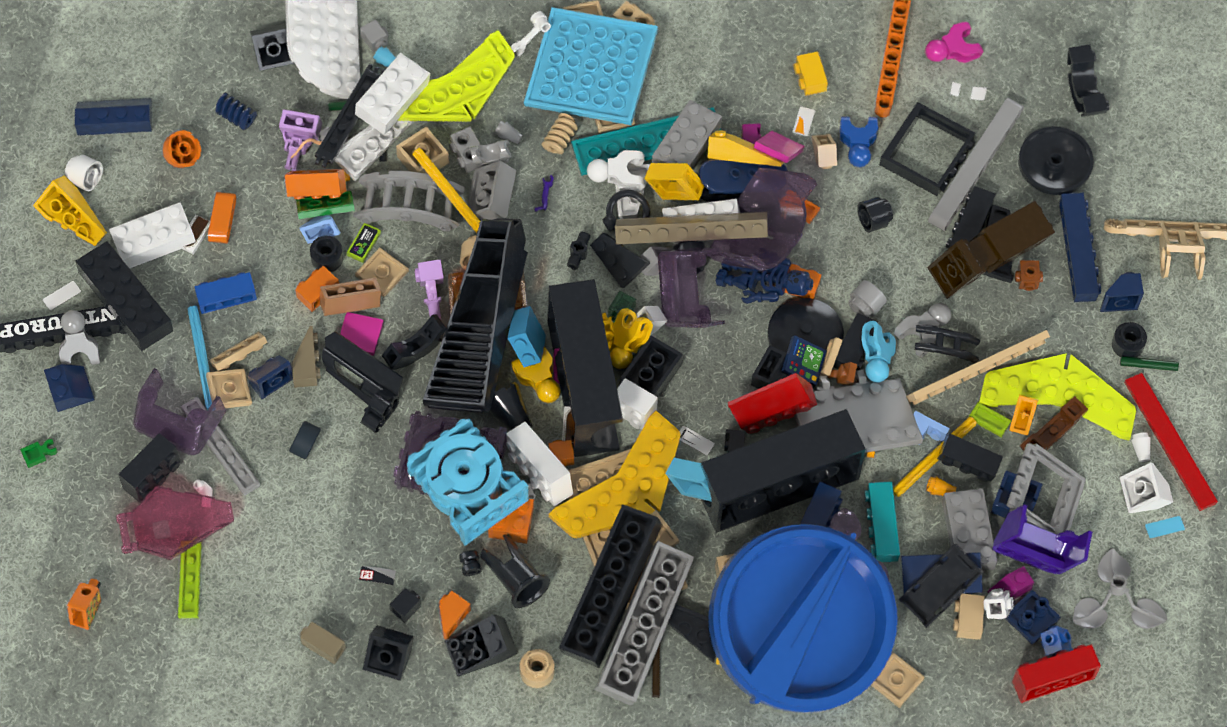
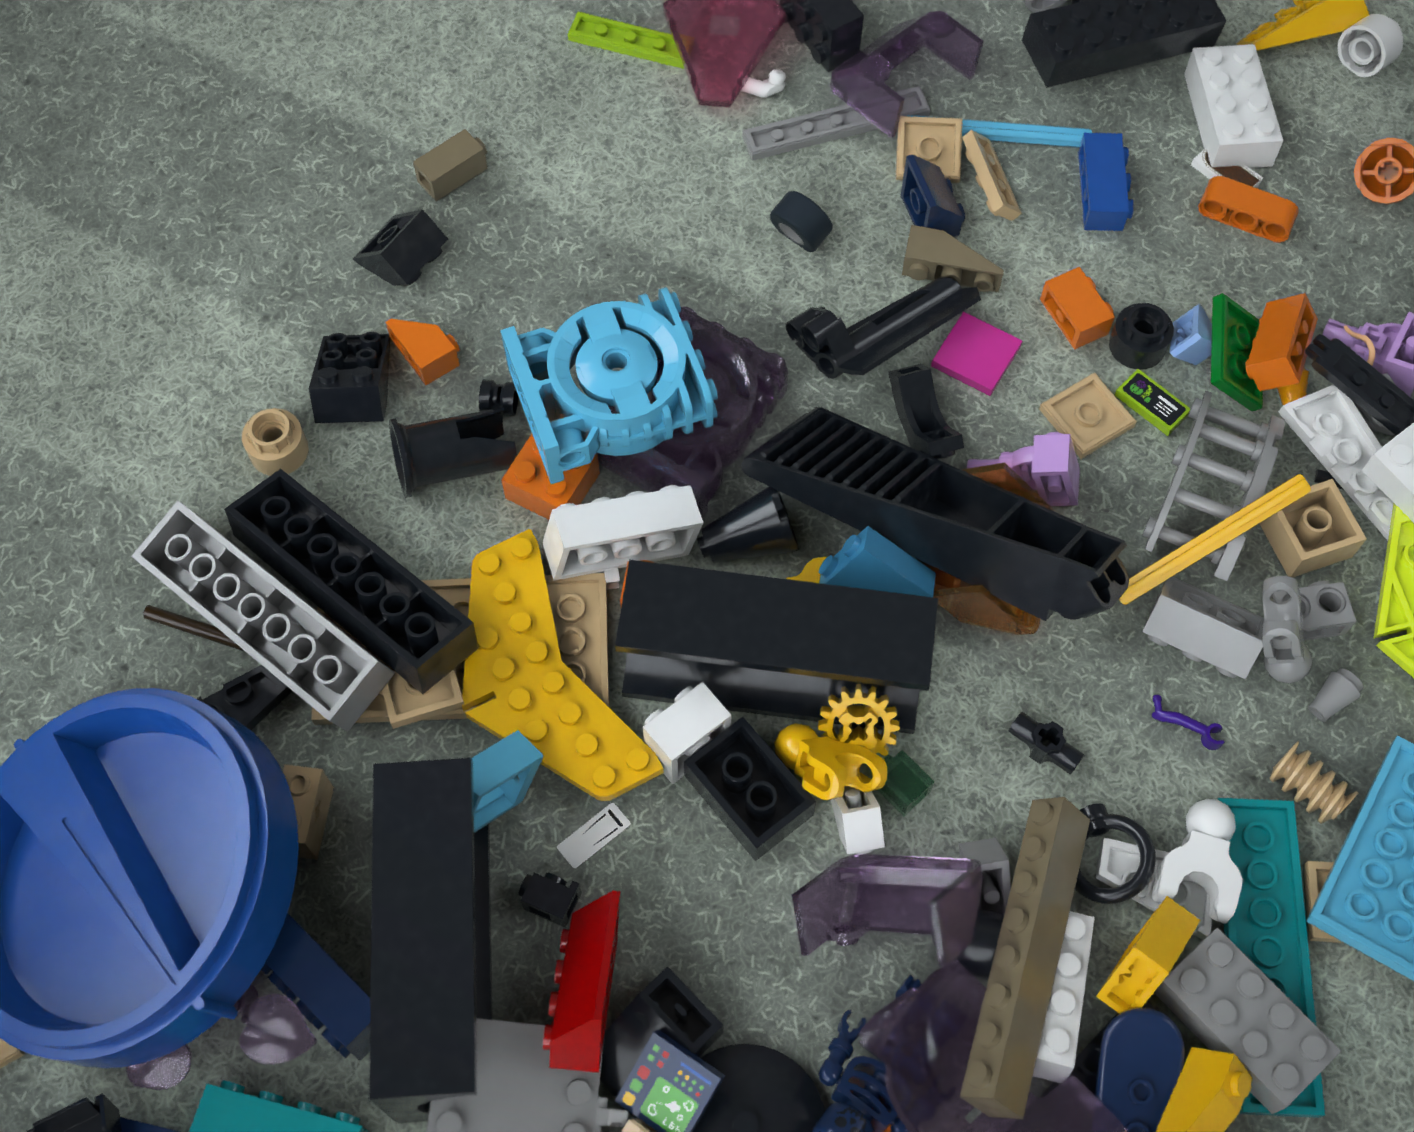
camera: 110 degrees right, 0 degrees up
(350, 296) = (1043, 341): medium nougat brick -> none
(377, 574) = (538, 274): sticker -> none
(405, 604) = (466, 288): black brick -> none
(619, 260) = (1001, 807): black wing -> none

